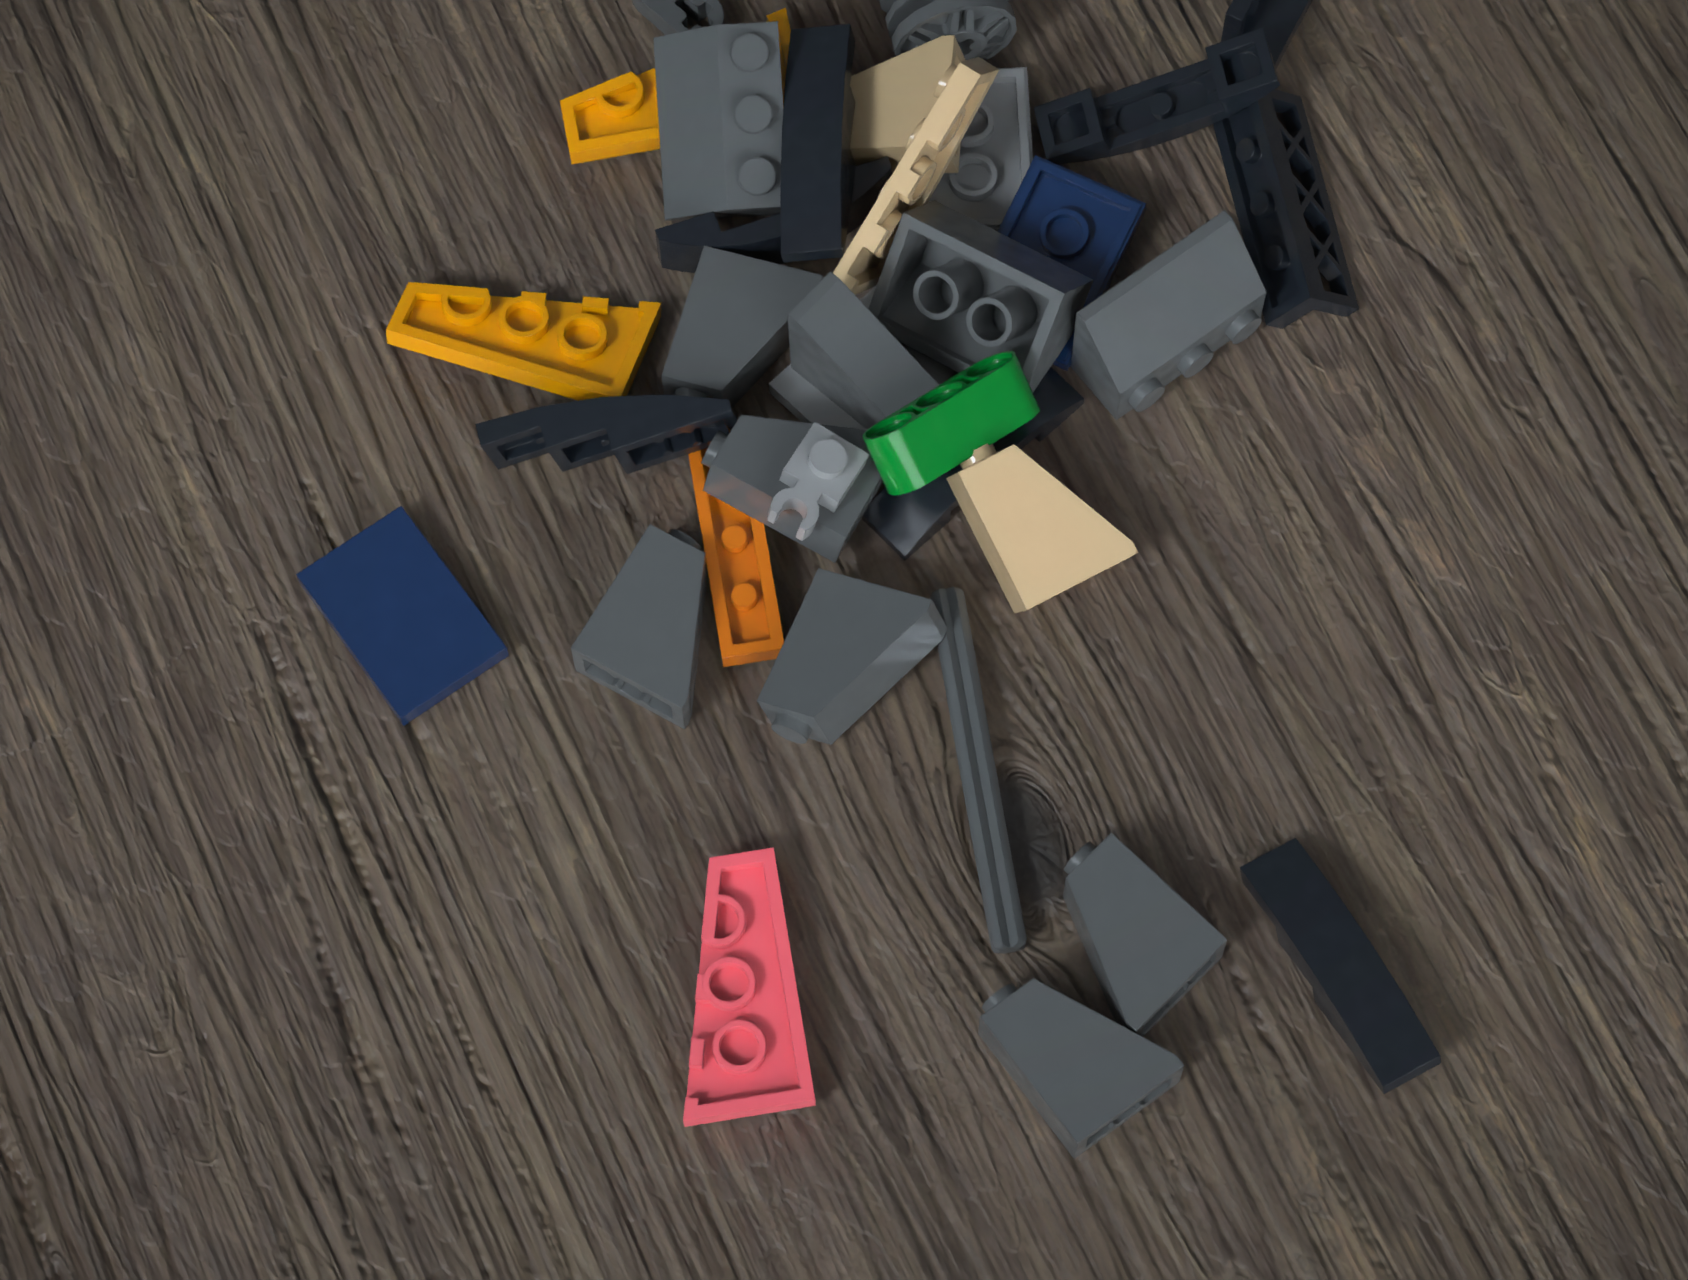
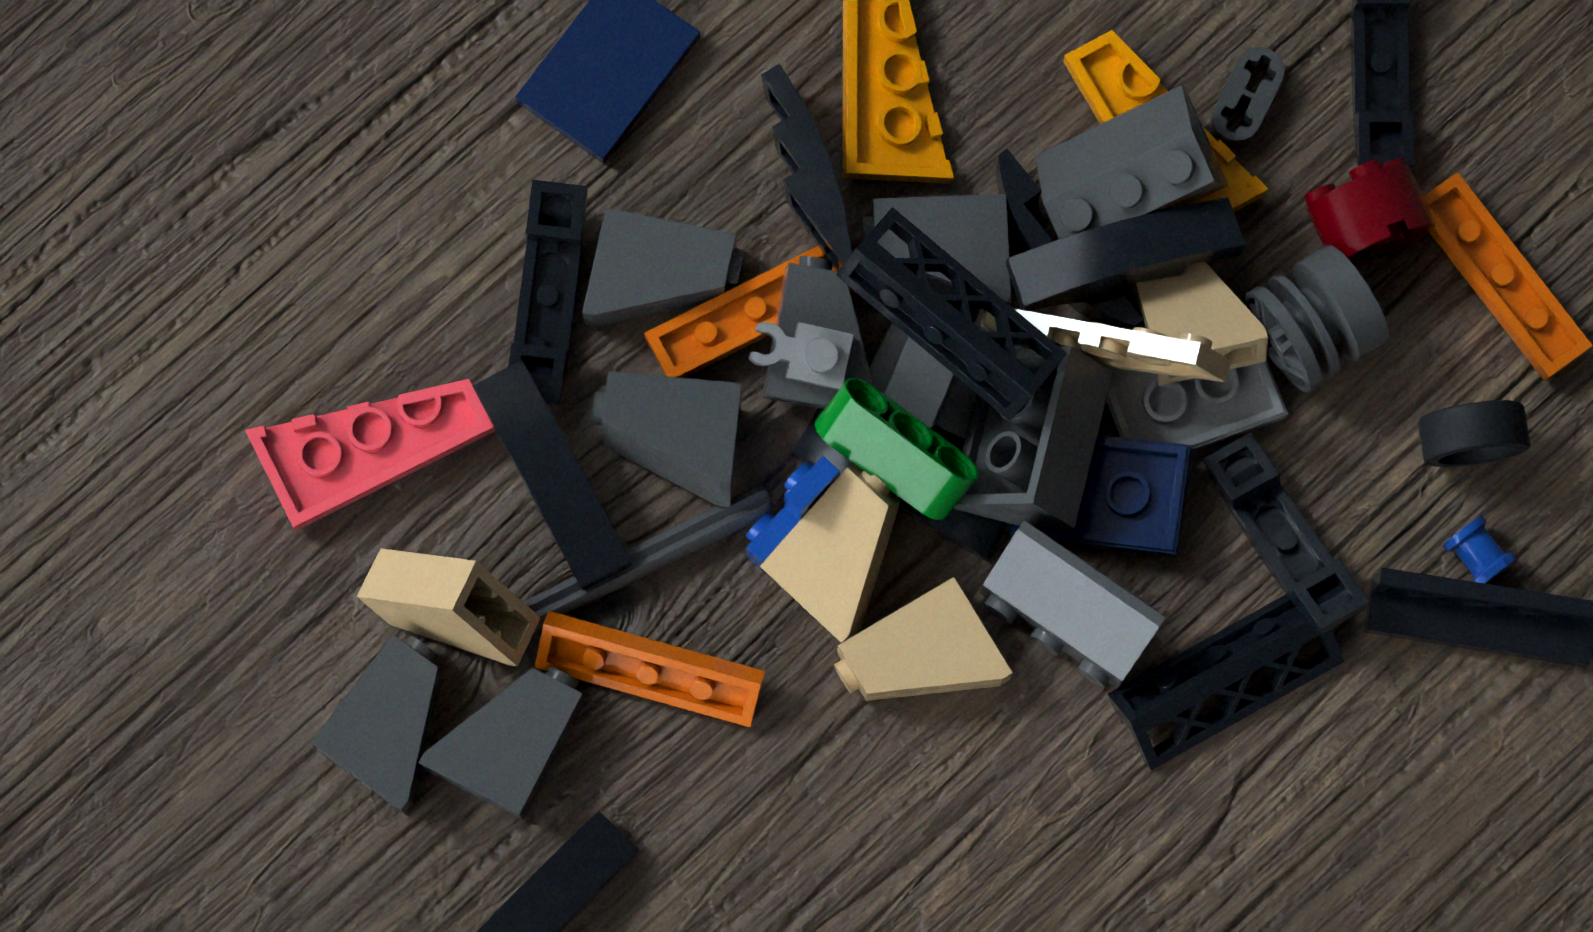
camera: 70 degrees right, 10 degrees up
(637, 751) = (550, 284): none -> black slope
(846, 311) = (944, 322): none -> black fence
(852, 796) = (552, 475): none -> black slope
(962, 947) = (449, 603): none -> tan slope
(967, 546) = (803, 491): none -> blue plate
(1099, 765) = (650, 669): none -> orange plate
(1163, 480) = (923, 650): none -> tan slope

